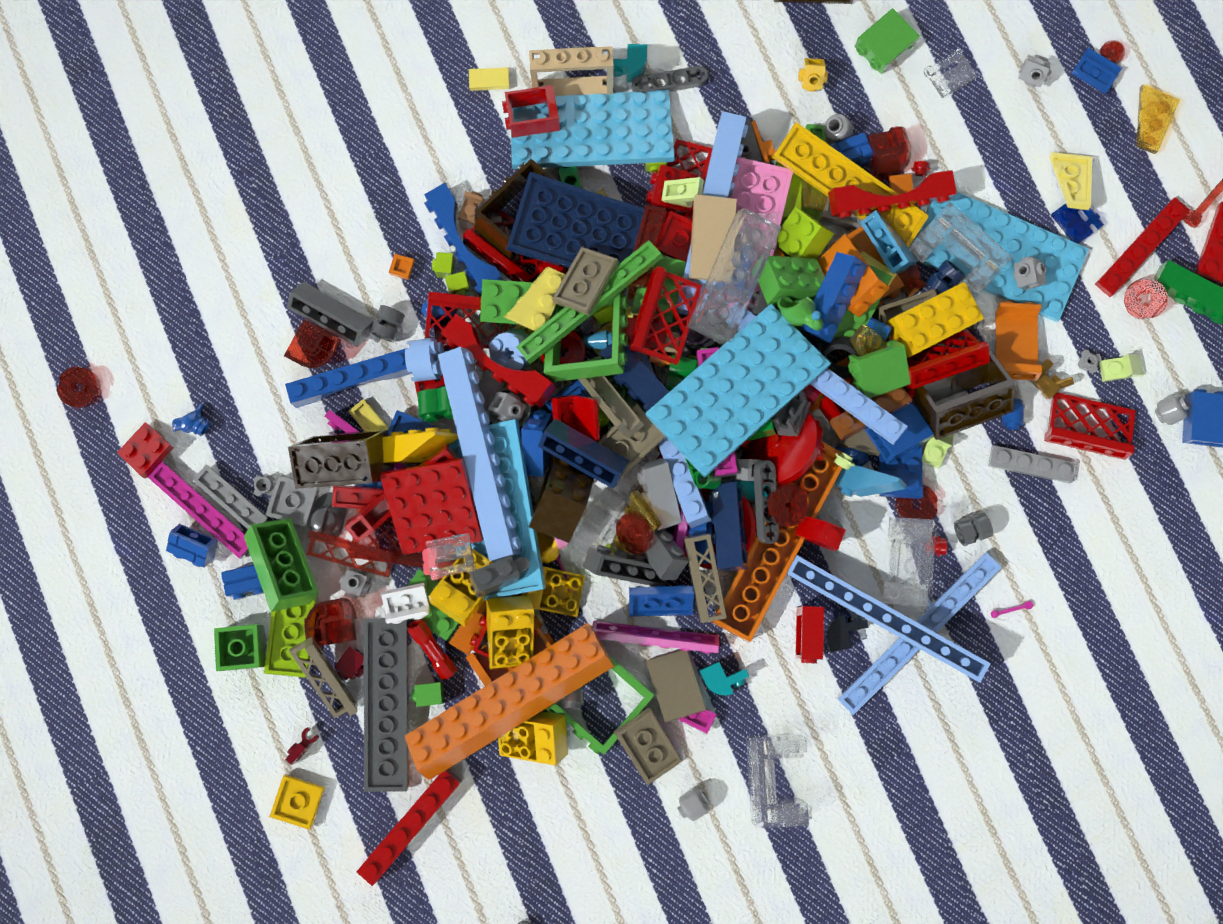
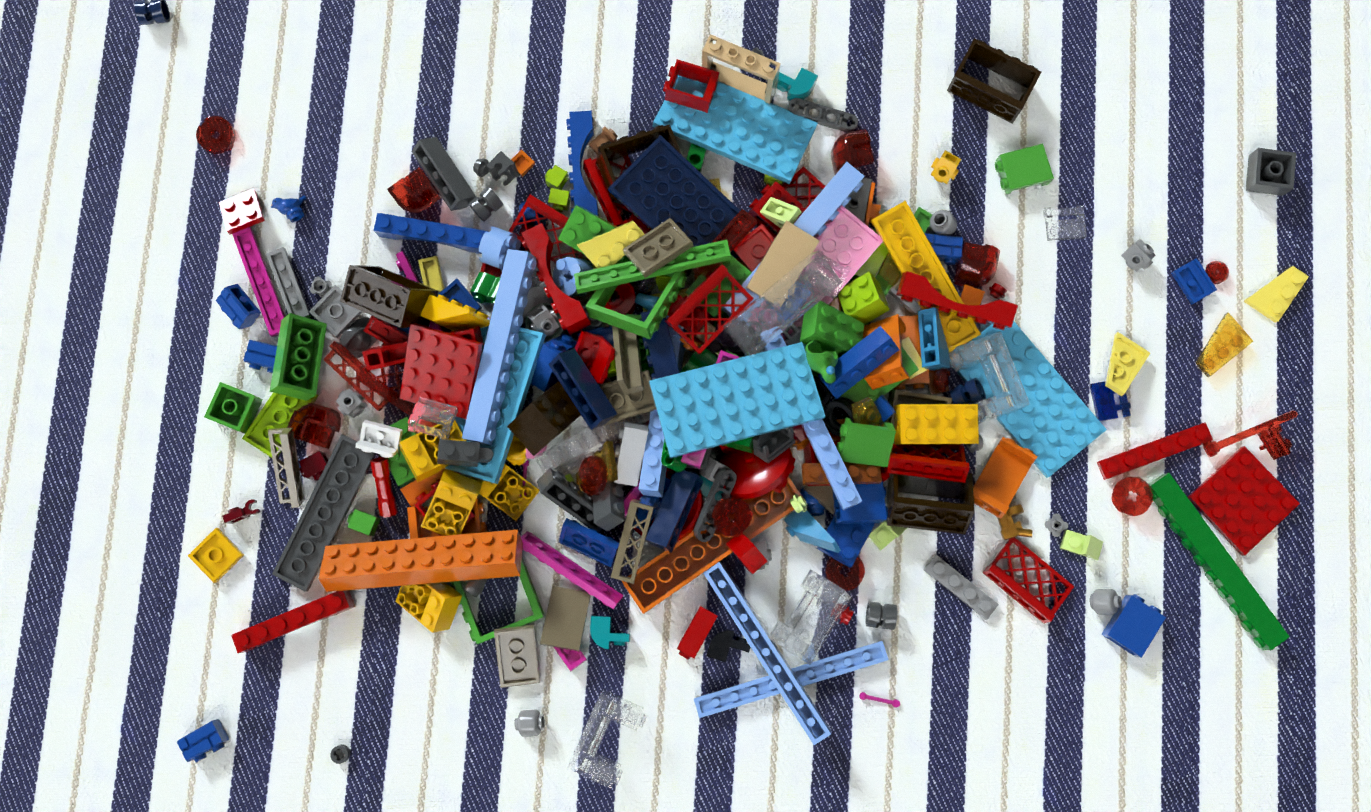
camera: 30 degrees right, 0 degrees up
(364, 290) = (480, 167): none -> dark grey plate
(387, 277) = (502, 165): none -> dark grey hinge
(489, 79) = (673, 42): light yellow tile -> none
(714, 98) = (852, 148): none -> clear red brick
(1016, 418) = (967, 540): blue brick -> none
(1029, 273) = (1041, 425): light grey brick -> none
(1178, 47) = (1278, 294): none -> light yellow wing

